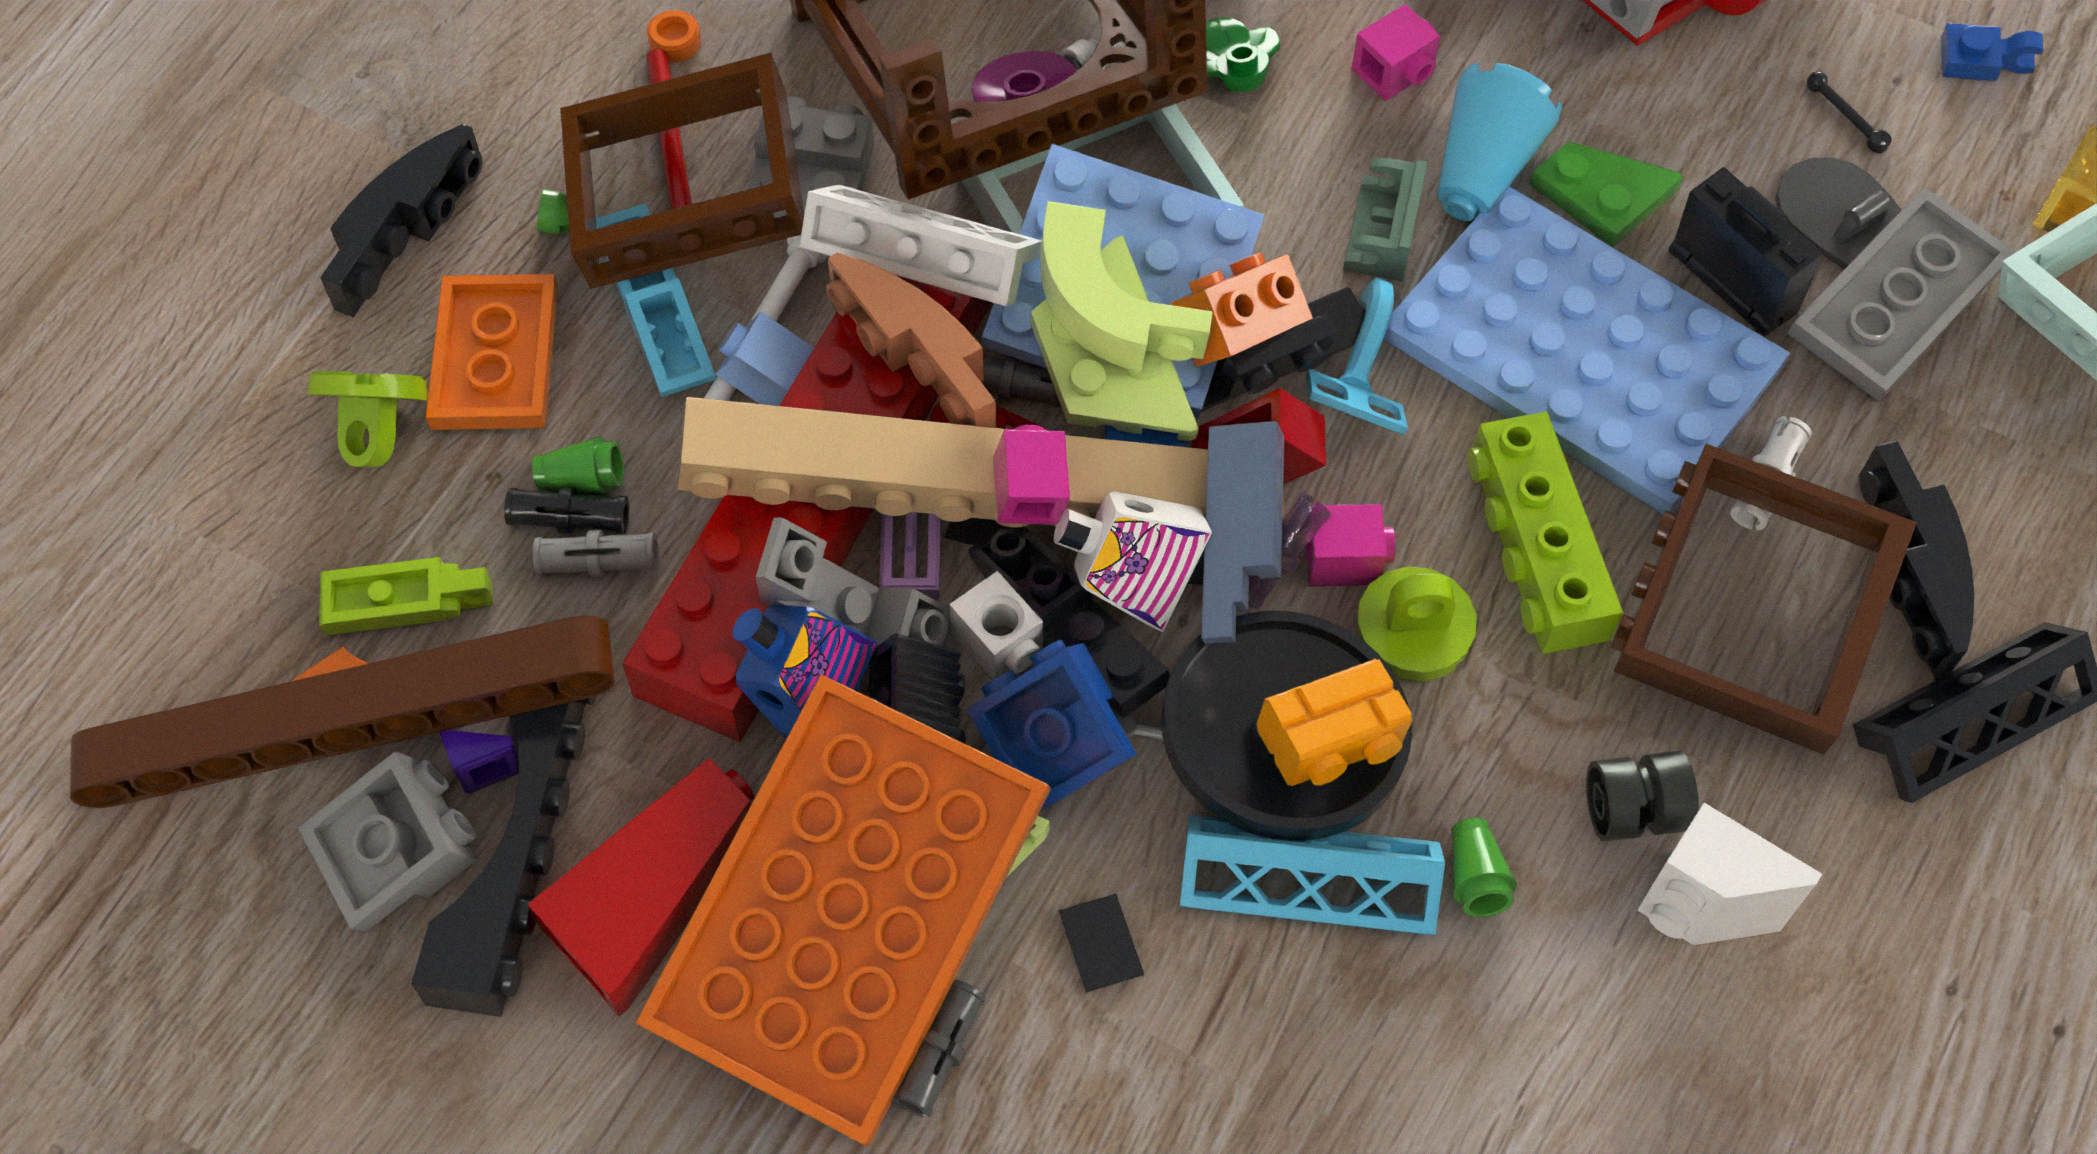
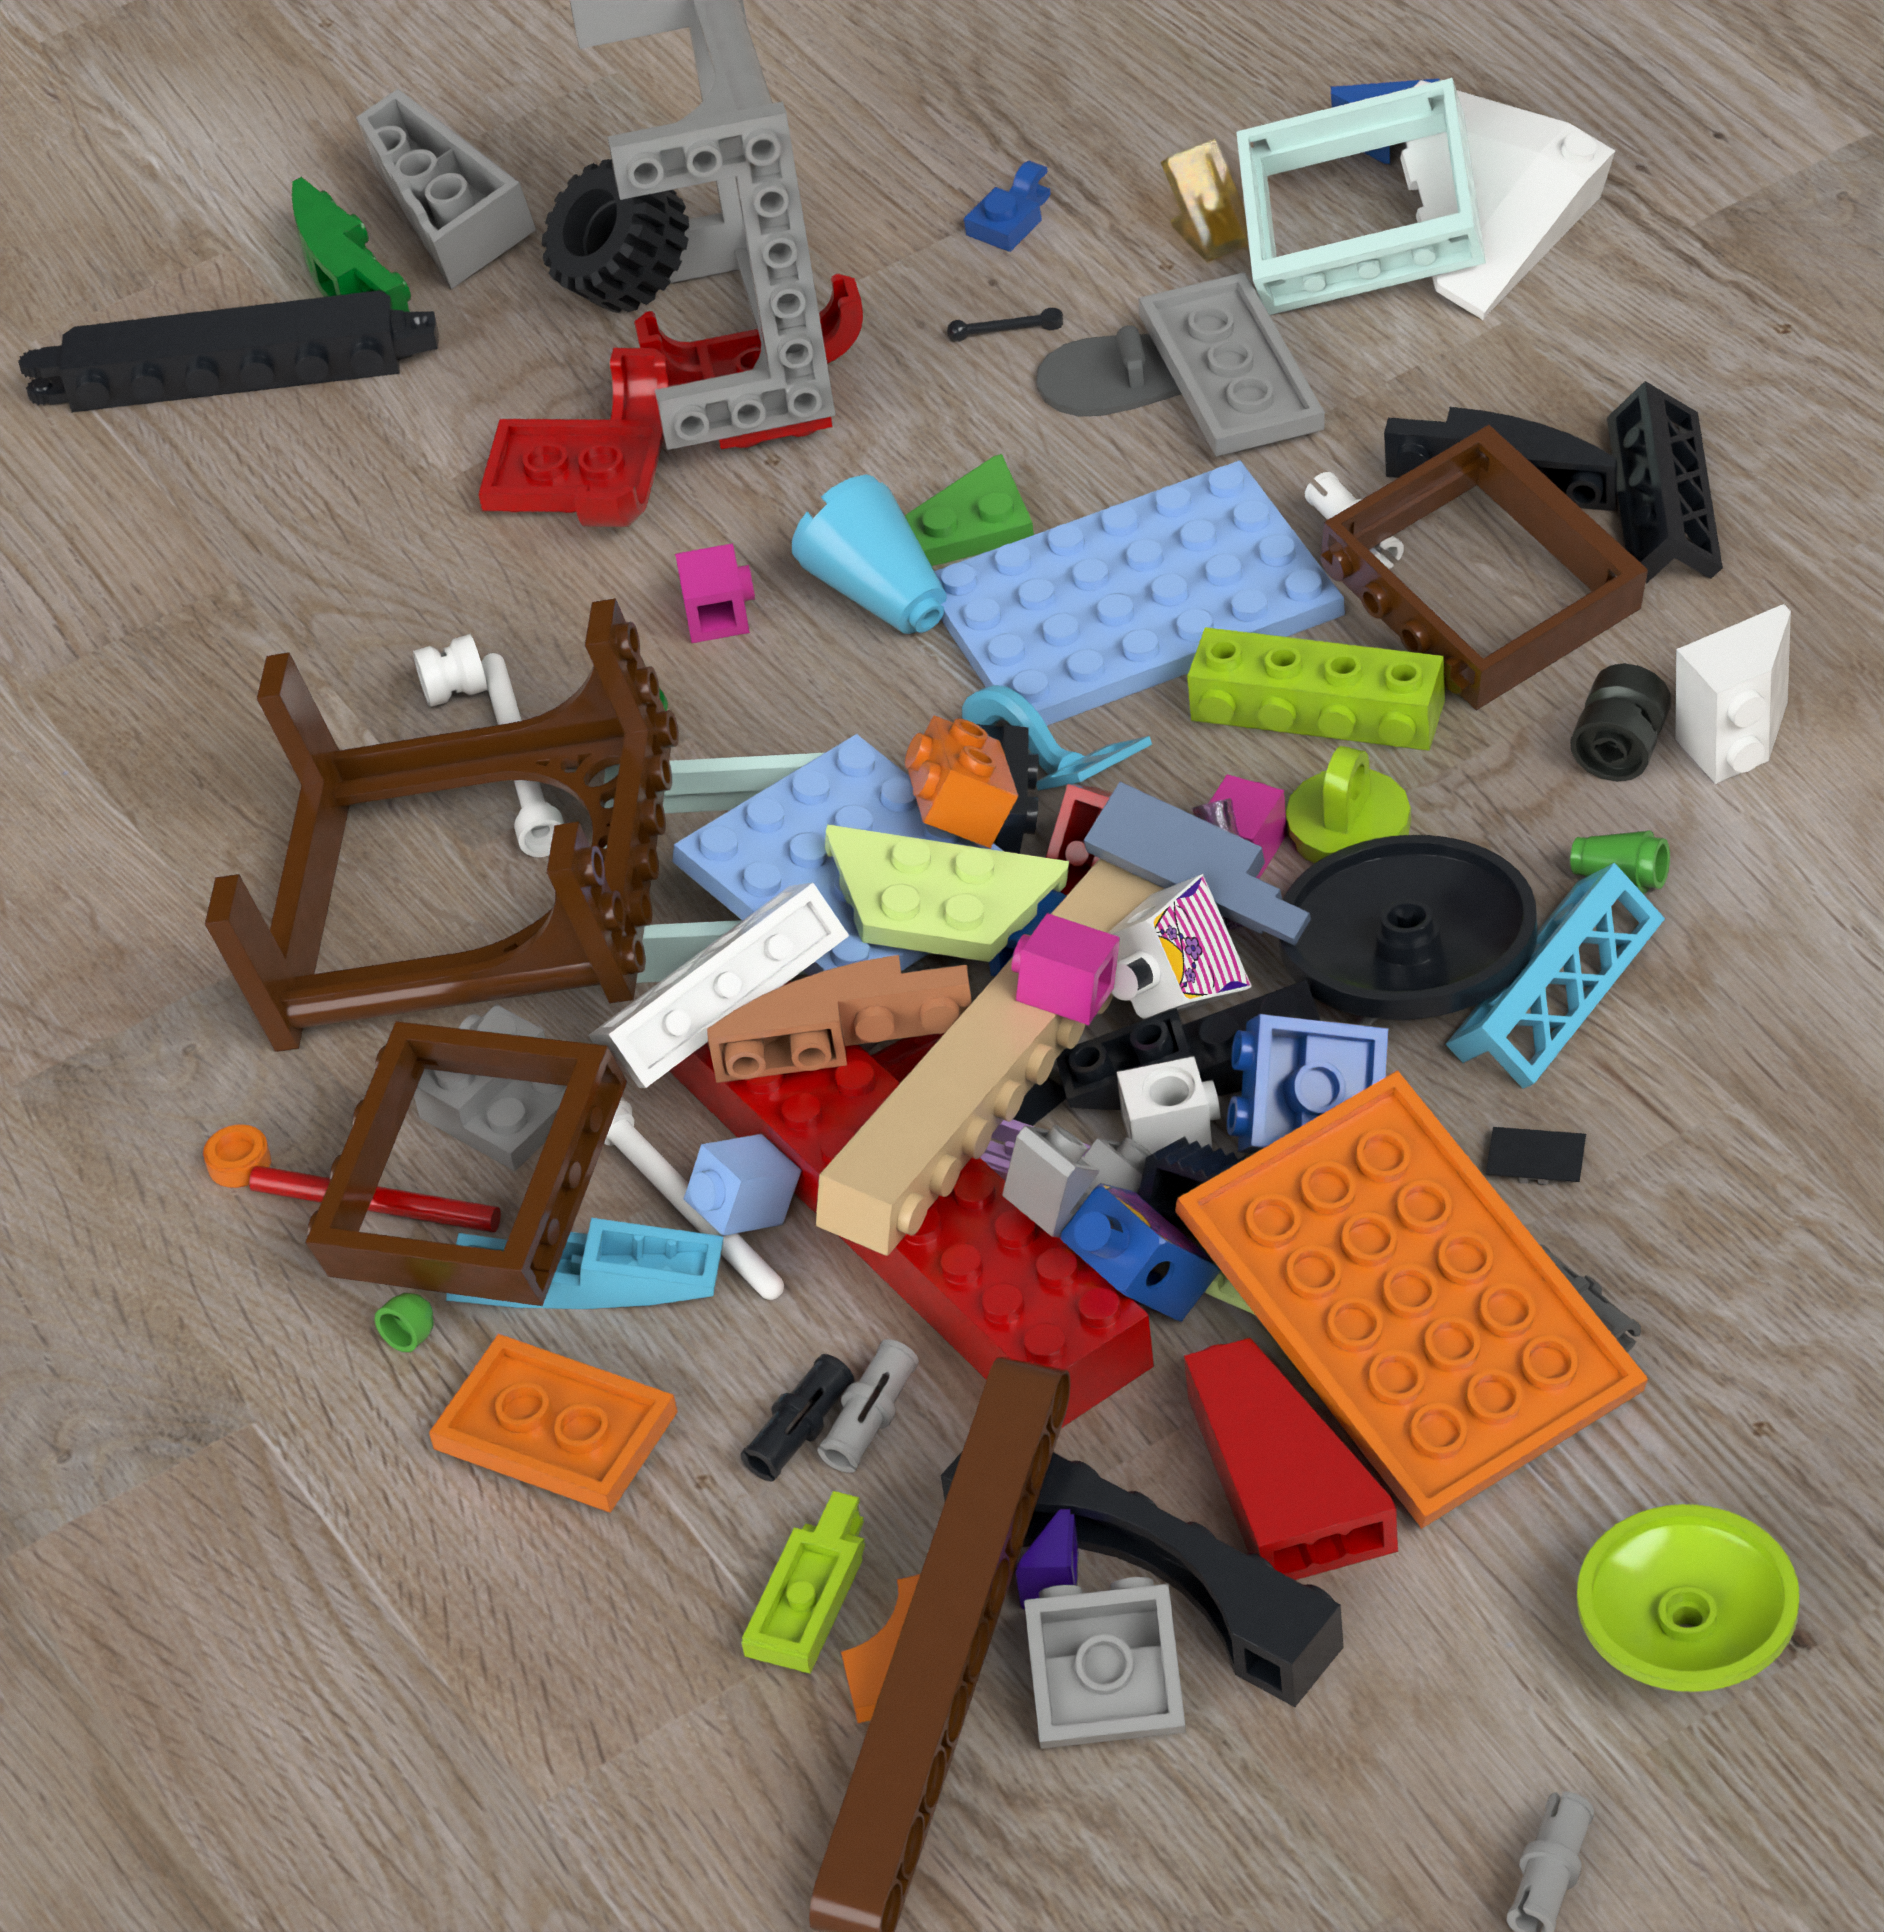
camera: 55 degrees left, 15 degrees down
(367, 403) = (556, 1530): lime tile -> none
(402, 201) = (312, 1457): black slope -> none
(587, 466) = (755, 1382): bright green cone -> none
(1020, 75) = (519, 885): magenta dish -> none
(1097, 309) = (896, 858): yellowish green arch -> none
(1334, 724) = (1443, 872): light orange brick -> none
(1385, 219) = (900, 670): sand green hinge -> none
(1745, 251) = (1126, 432): black piece -> none

